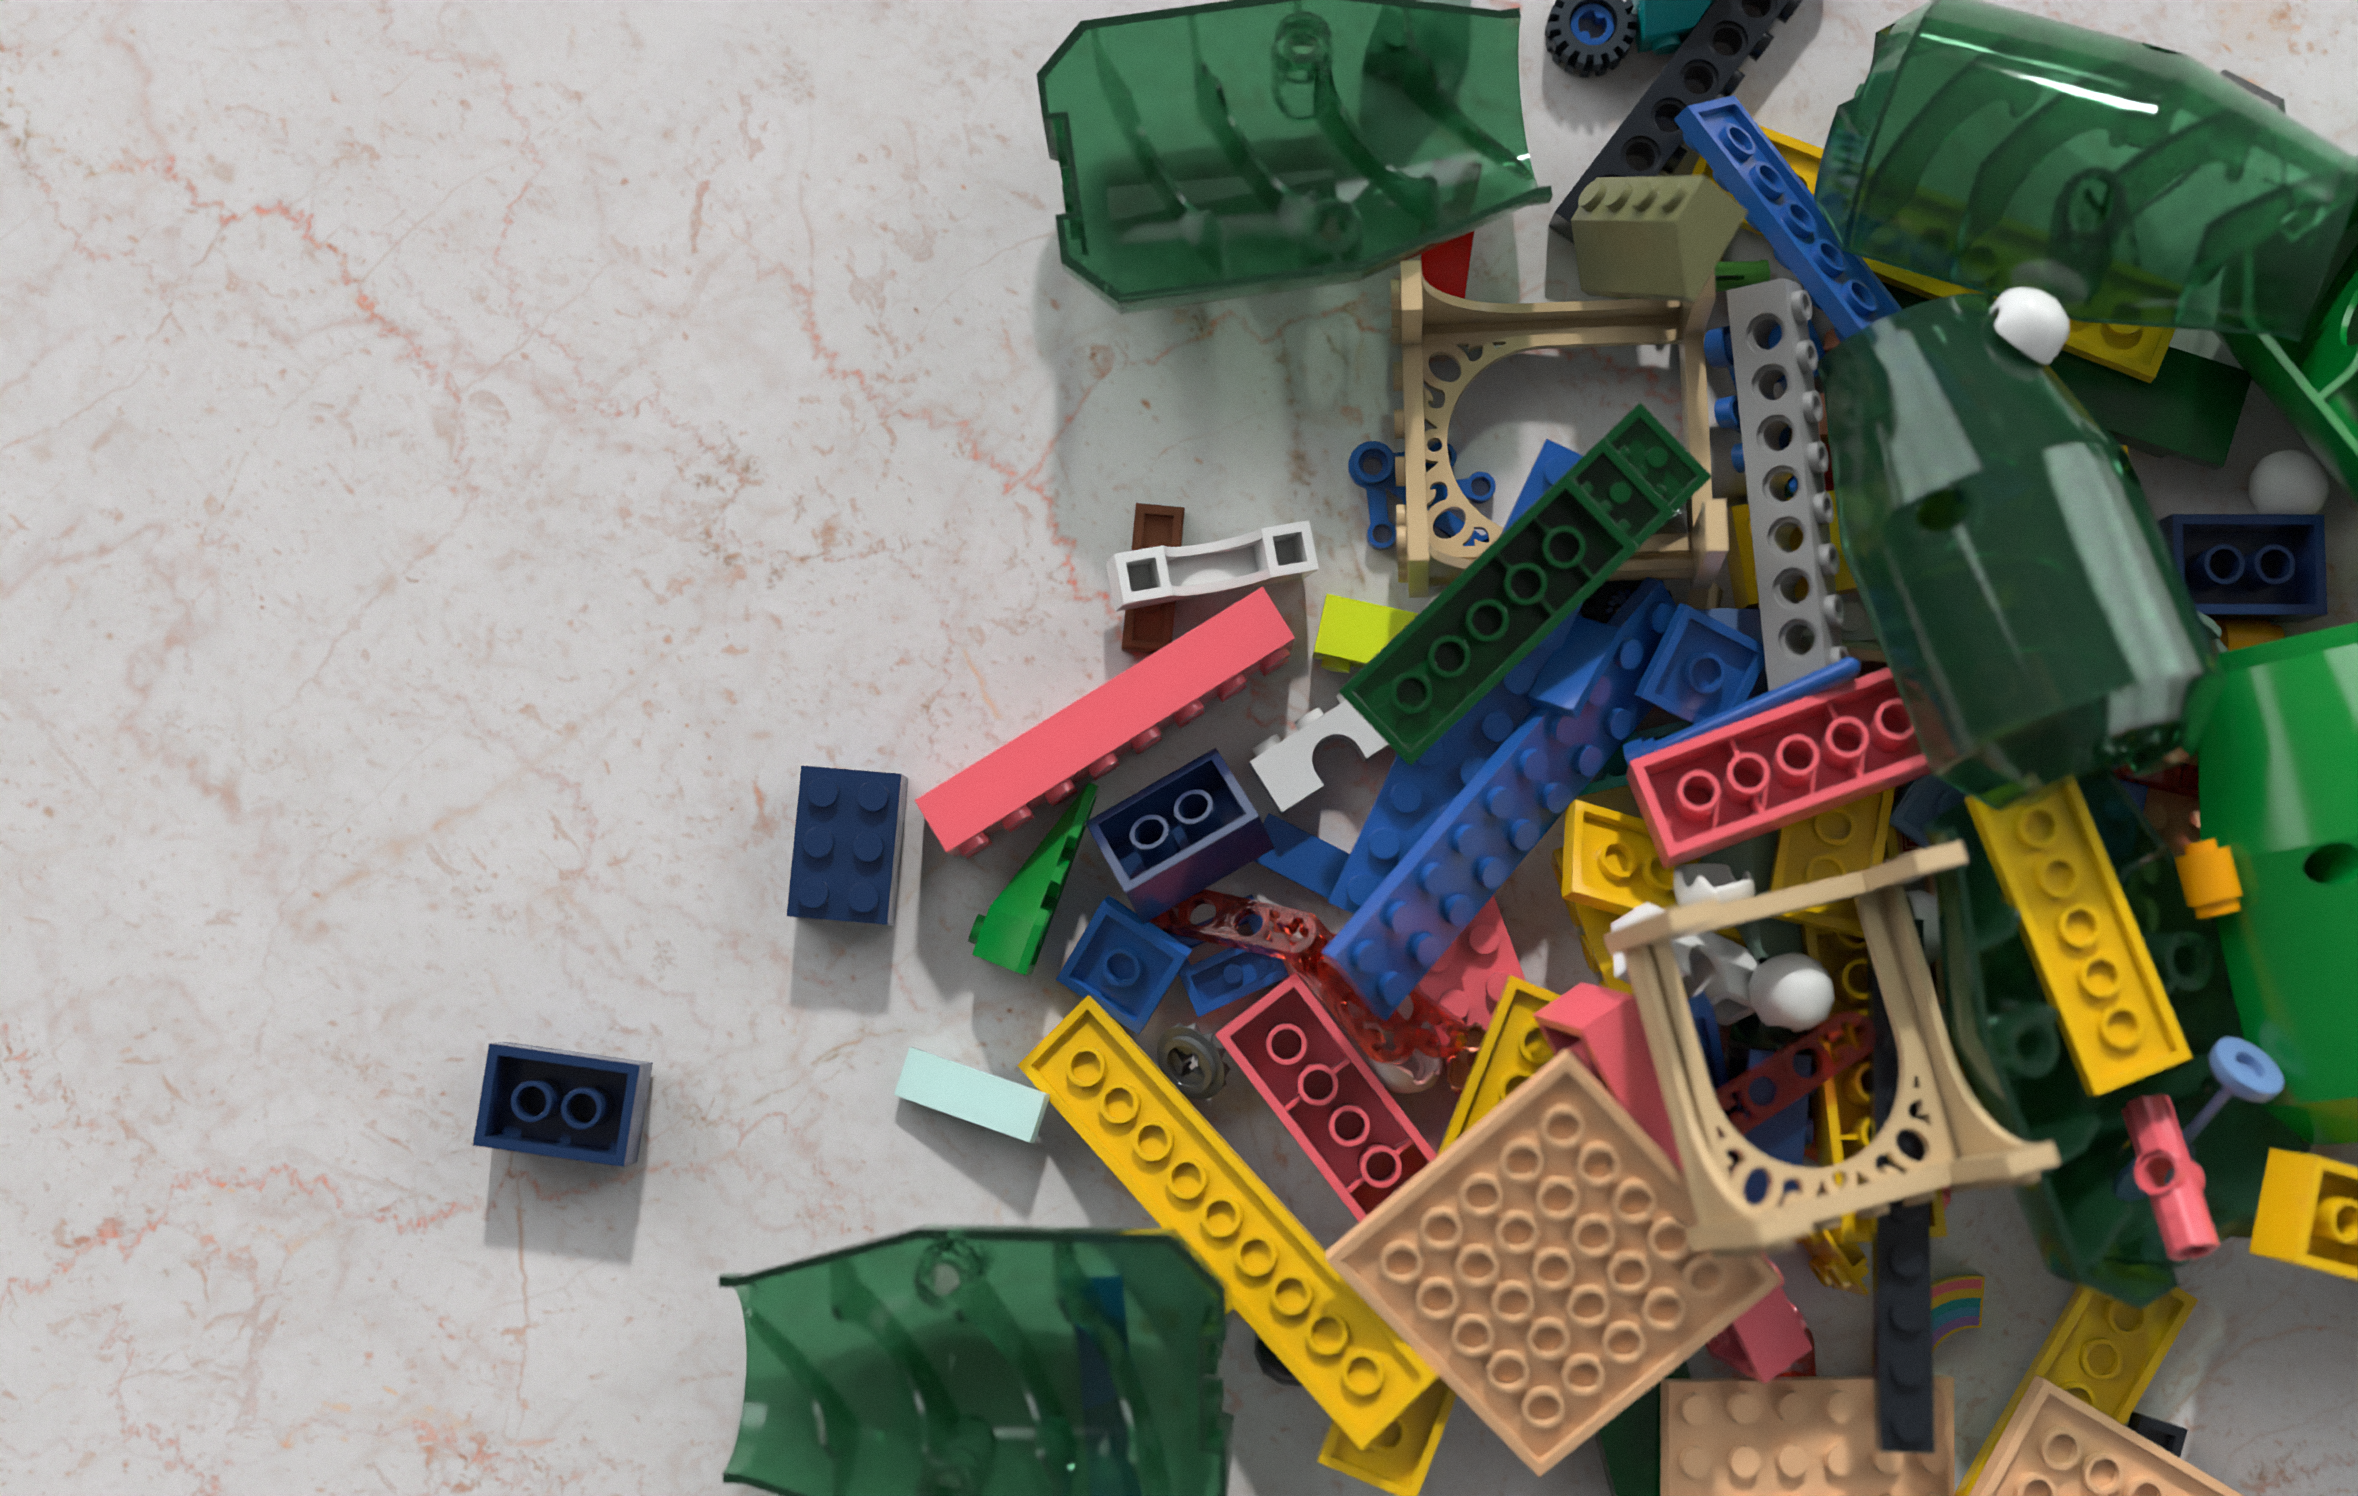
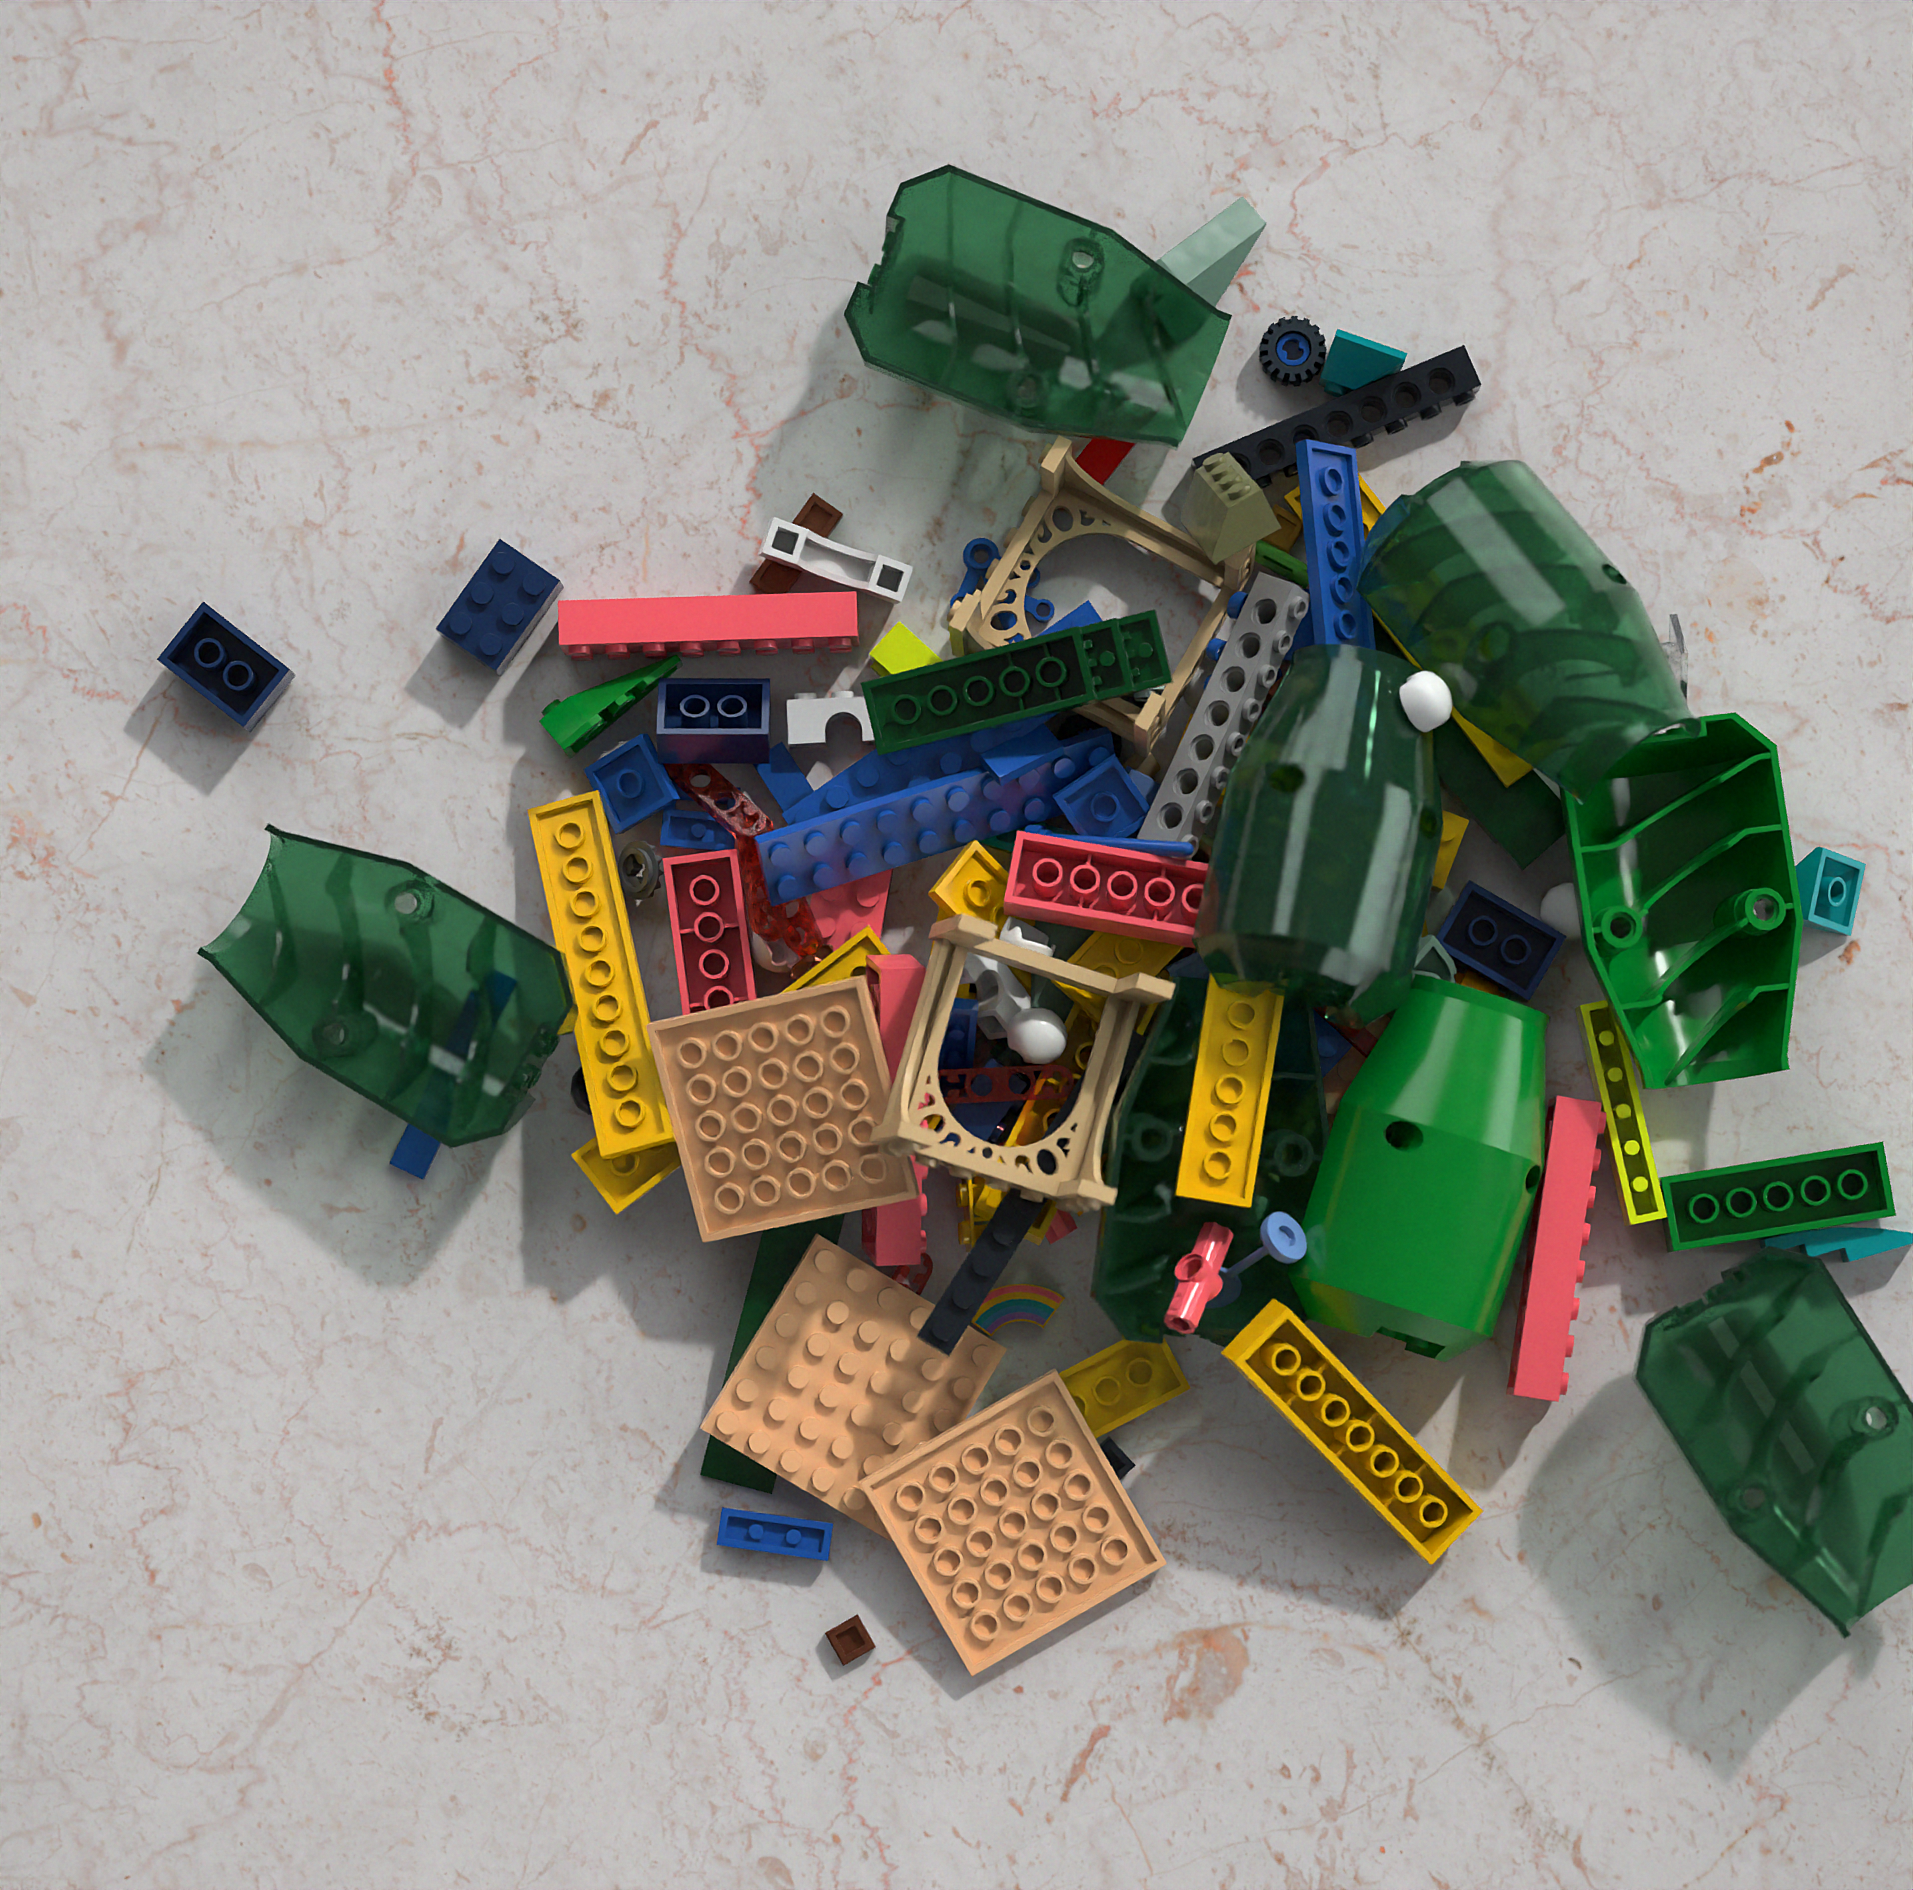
camera: 30 degrees right, 0 degrees up
(972, 1095) = (487, 811): light aqua tile -> none
(2209, 879) = (1332, 1108): light orange brick -> none

